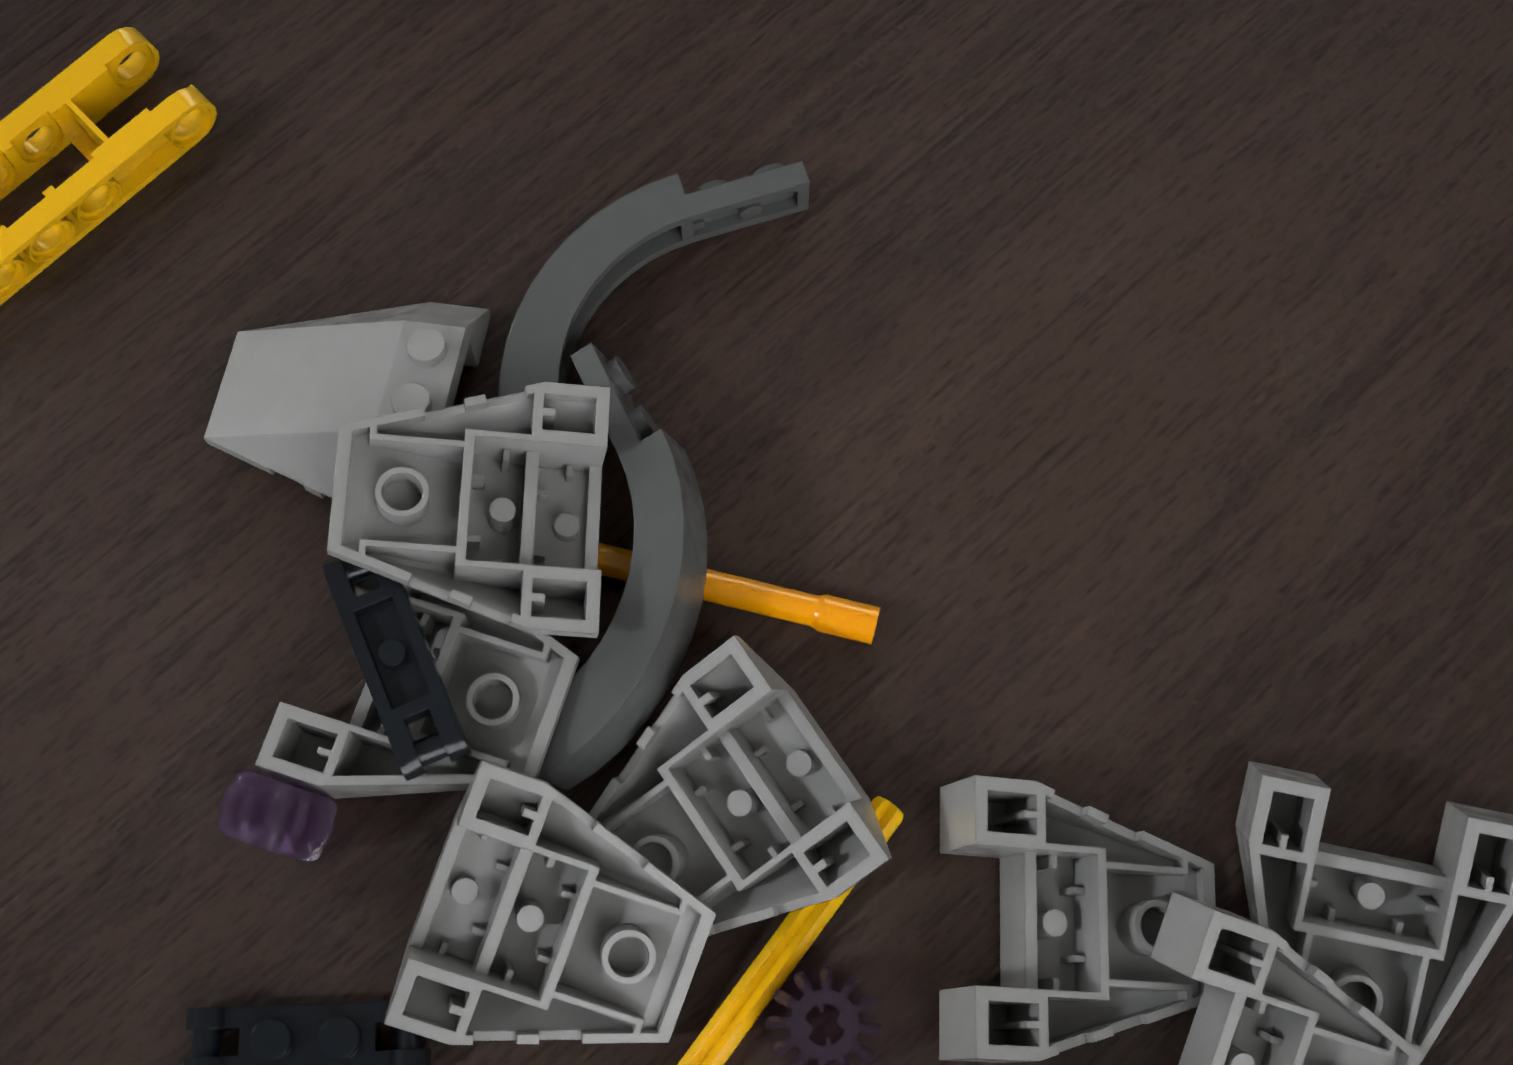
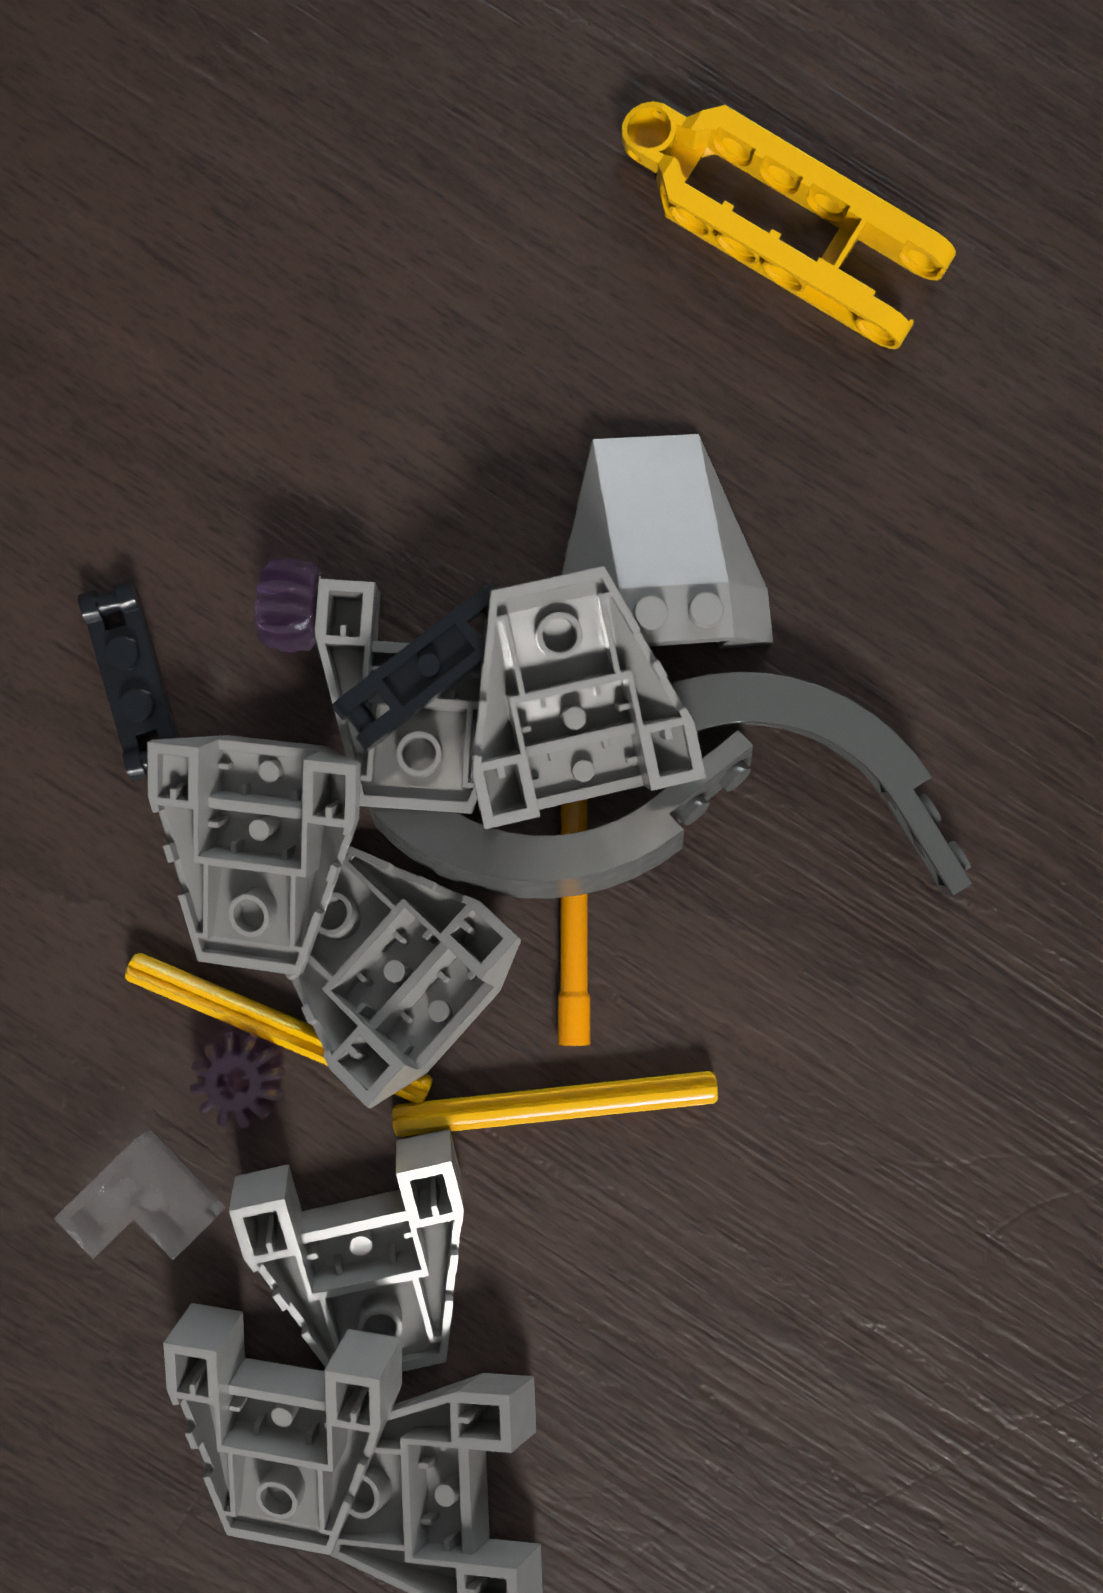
camera: 80 degrees right, 15 degrees up
(938, 668) = (555, 1103): none -> yellow axle

